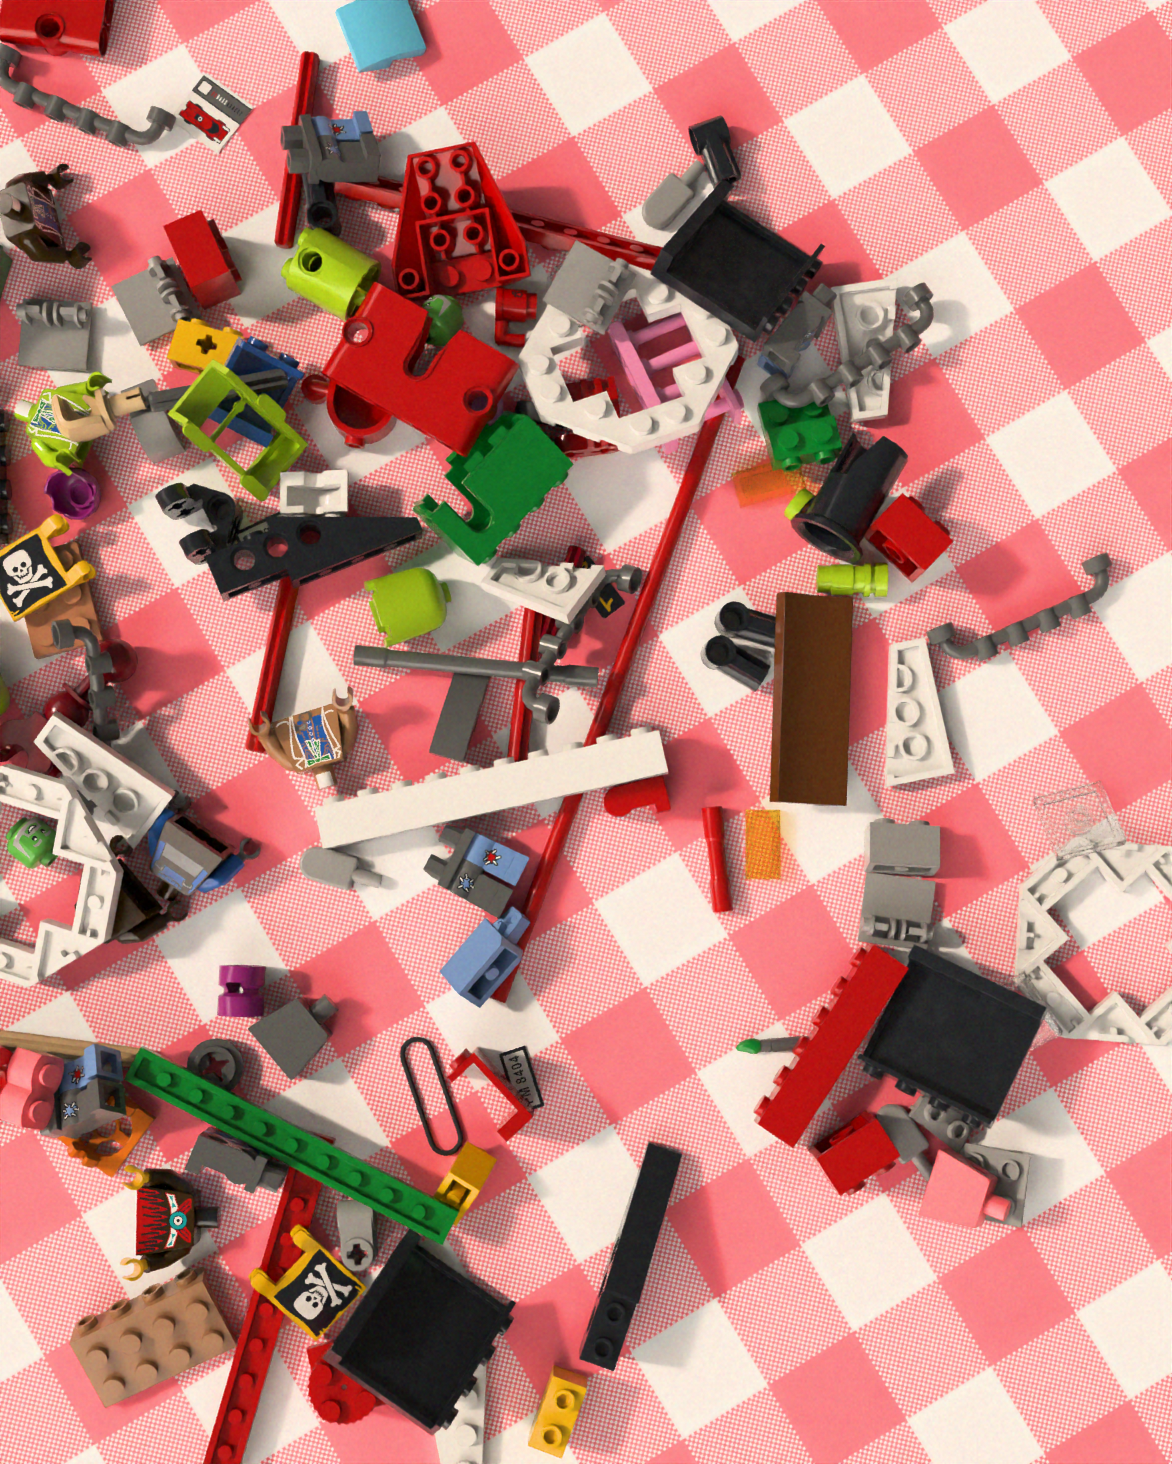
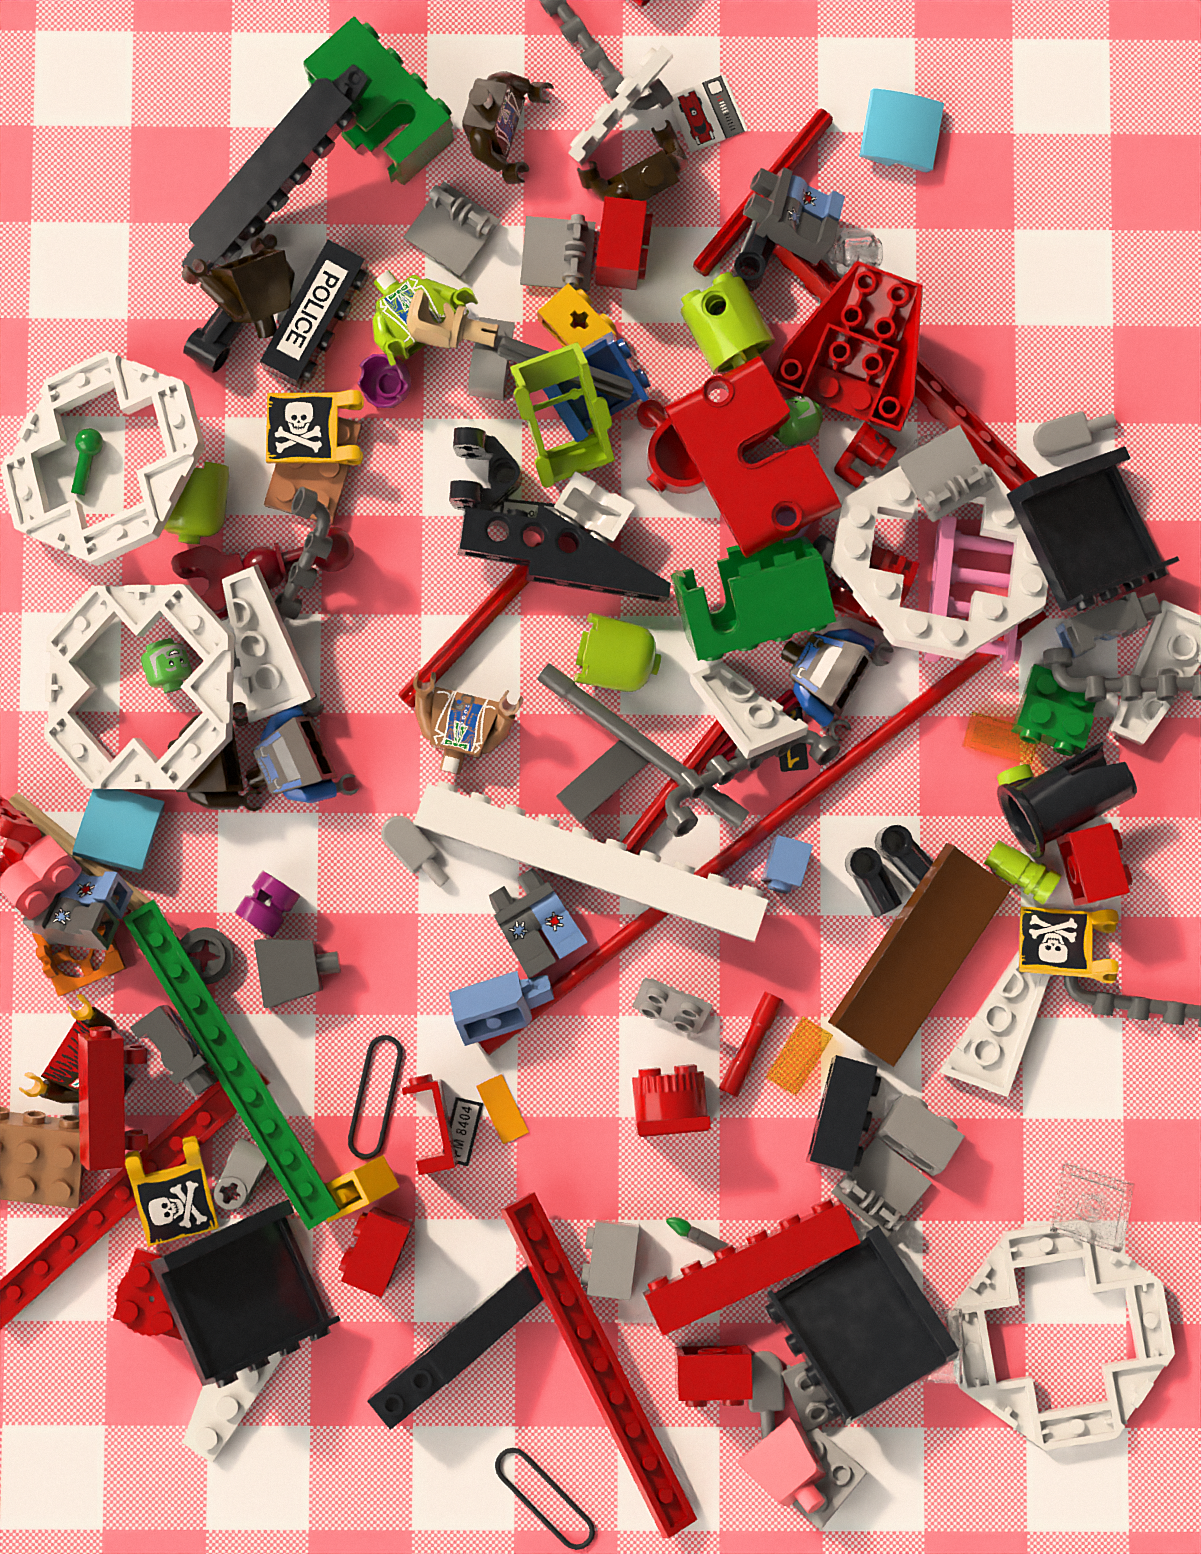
camera: 30 degrees right, 0 degrees up
(76, 1005) = (118, 828): none -> medium azure slope
(130, 154) = (629, 92): none -> white wing
(190, 192) = (645, 177): none -> dark brown torso
(199, 1243) = (102, 1099): none -> red brick
(398, 146) = (853, 247): none -> clear head
(510, 1225) = (376, 1252): none -> red brick
(543, 1040) = (502, 1109): none -> light orange sticker
(557, 1411) = (319, 1436): yellow brick -> none
(594, 510) = (830, 671): none -> torso
(625, 798) = (704, 941): red leg -> none
(641, 866) = (664, 1002): none -> light grey hinge
(655, 691) = (786, 864): none -> medium blue brick
(680, 948) = (670, 1101): none -> red piece
(711, 1109) = (611, 1259): none -> light grey brick
(712, 142) = (1135, 406): black piece -> none
(754, 1204) = (598, 1365): none -> red plate
(772, 1357) = (555, 1487): none -> black piece
(829, 870) = (843, 1114): none -> black brick
(922, 618) = (1062, 942): none -> flag

